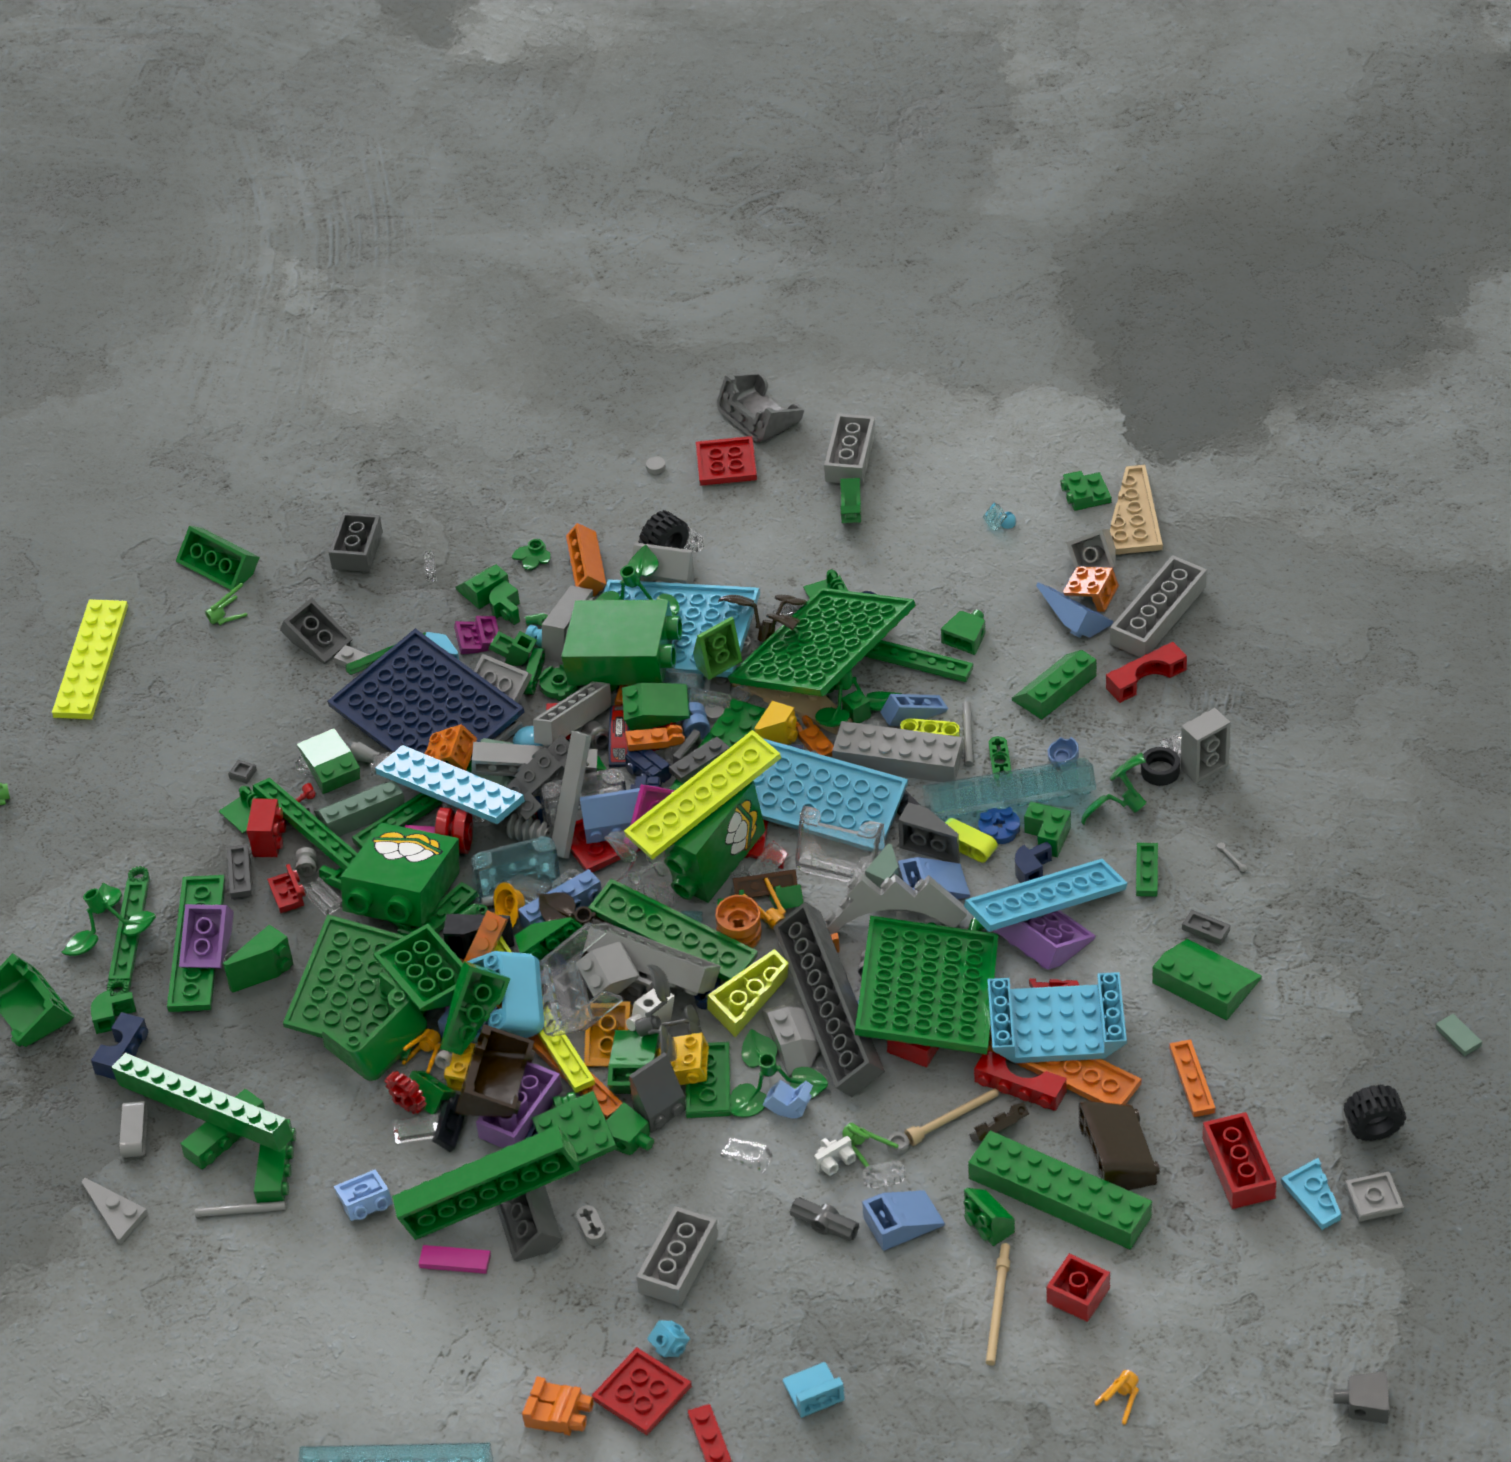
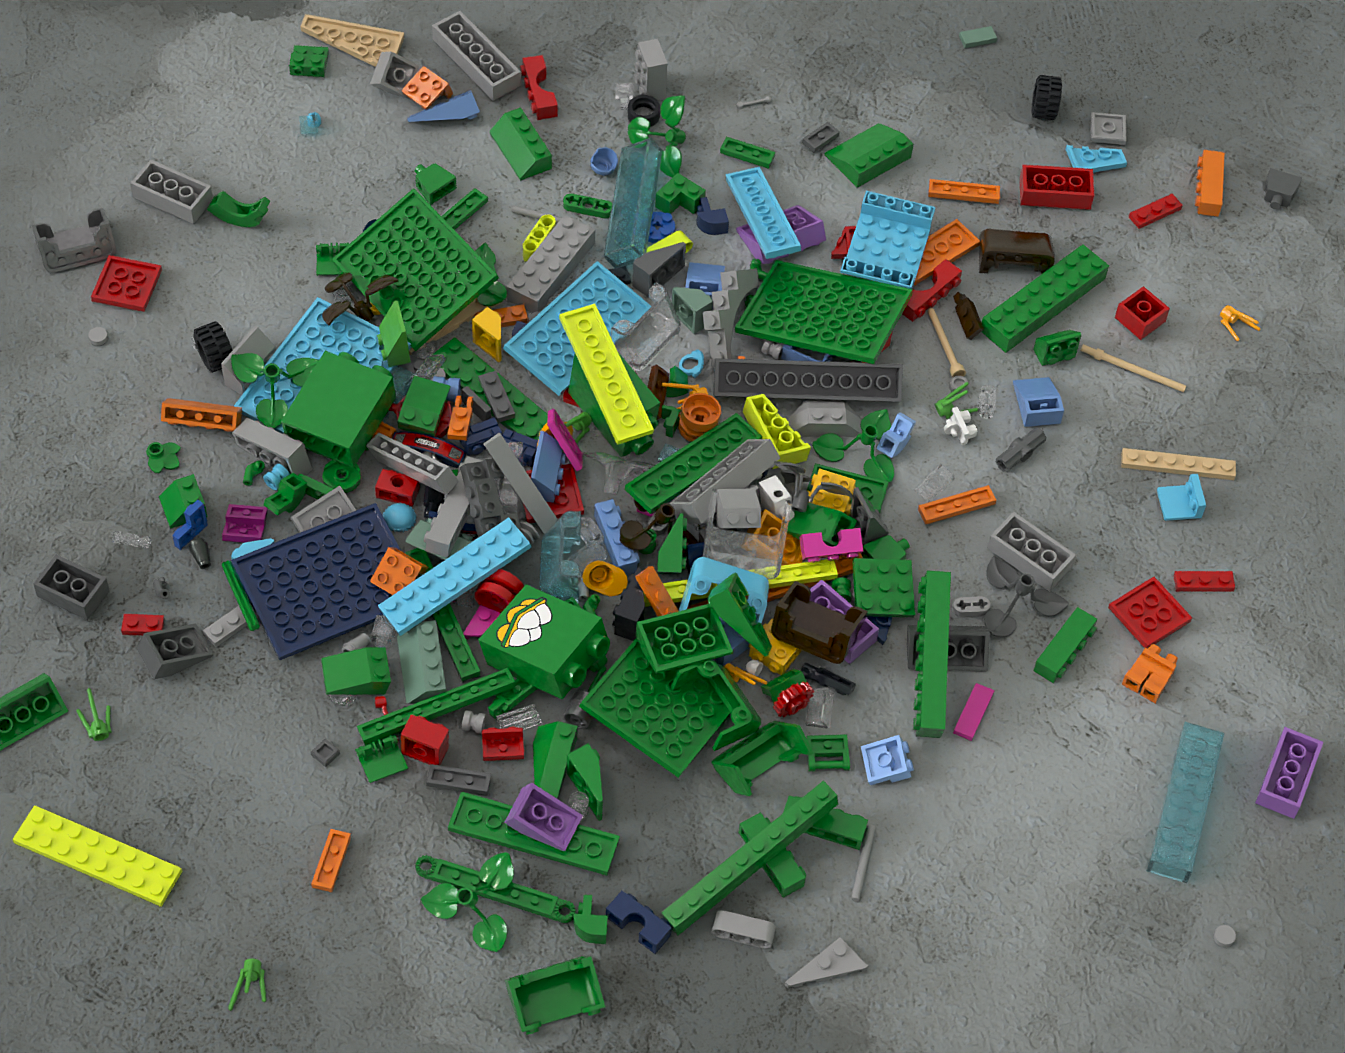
camera: 80 degrees left, 10 degrees up
(126, 809) = (331, 860): none -> orange plate
(300, 930) = (550, 753): none -> green wedge
(328, 1082) = (758, 753): none -> green windscreen
(339, 605) = (141, 623): none -> red plate
(367, 1143) = (828, 747): none -> green plate
(381, 602) = (159, 590): none -> dark grey arm
(431, 614) = (200, 552): none -> pearl dark grey cone
(455, 596) = (195, 523): none -> blue plate
(504, 602) = (217, 494): green brick -> none
(566, 1319) = (1065, 645): none -> green brick
(592, 1053) = (814, 548): none -> dark pink arch
(619, 1294) = (1001, 575): none -> dark grey plant
(668, 1339) = (1110, 579): medium azure brick -> none
(722, 1179) = (957, 504): none -> orange plate
(829, 906) = (697, 355): none -> medium azure piece
(872, 1379) = (1178, 464): none -> tan plate
(911, 706) = (505, 242): medium blue slope -> none
(1263, 1275) = (1155, 211): none -> red plate
(1332, 1317) = (1210, 182): none -> orange brick

